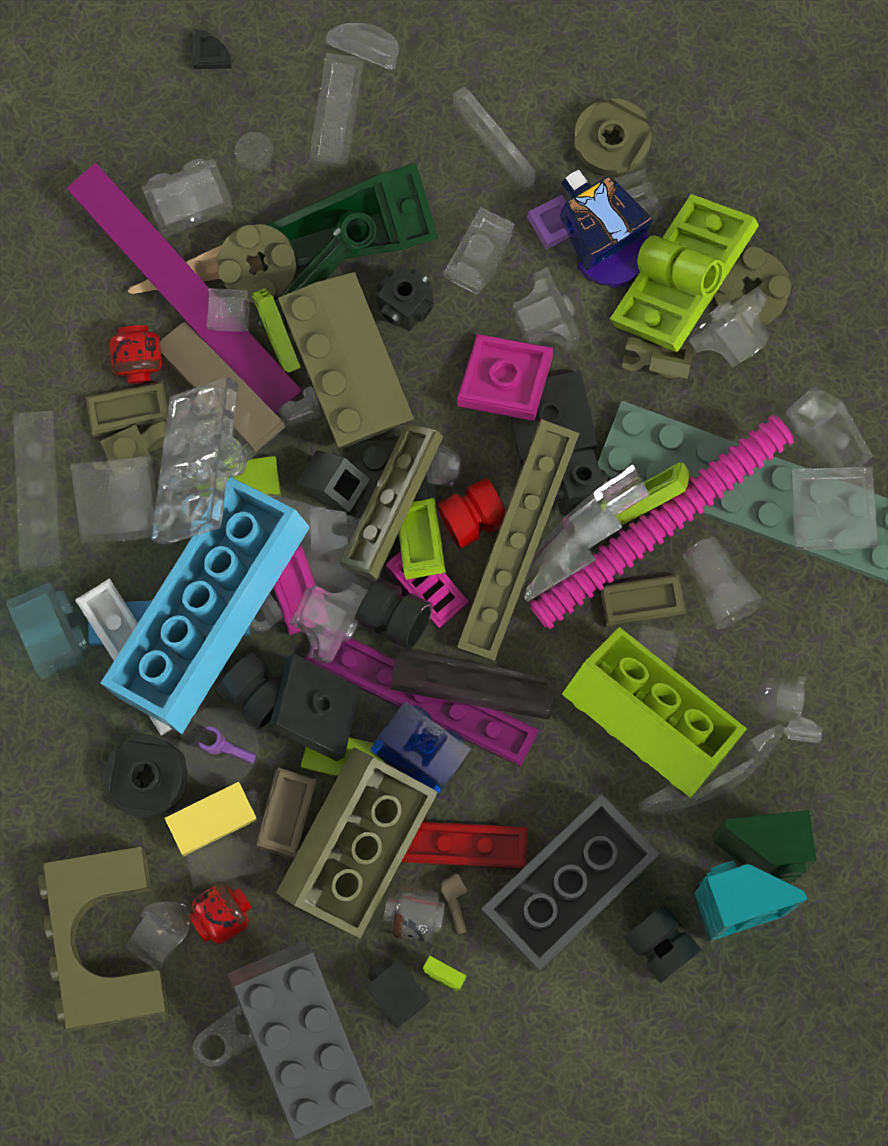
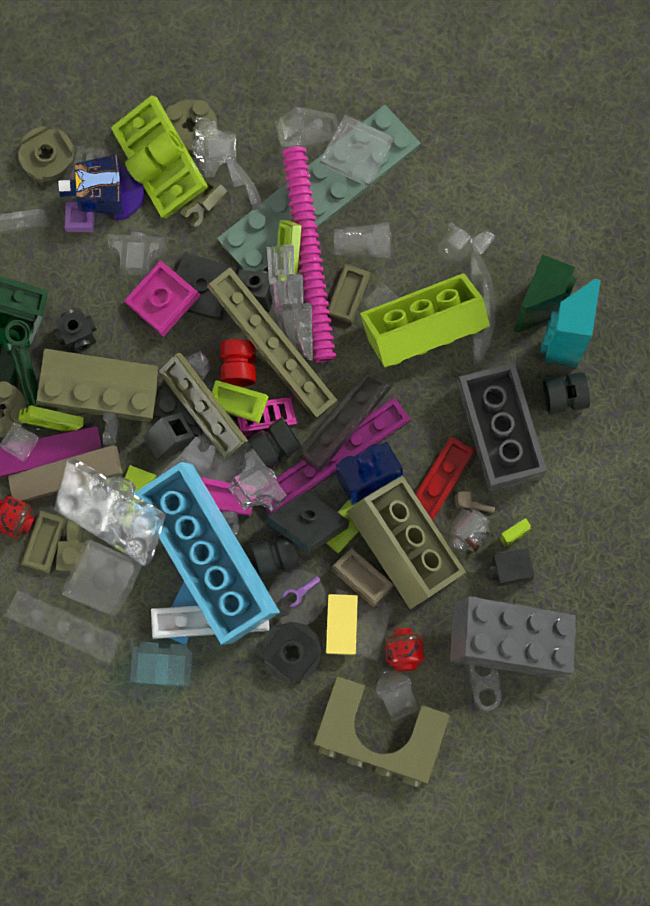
camera: 60 degrees left, 0 degrees up
(480, 251) = (73, 269): clear brick -> none
(713, 384) = (240, 177): none -> clear slope

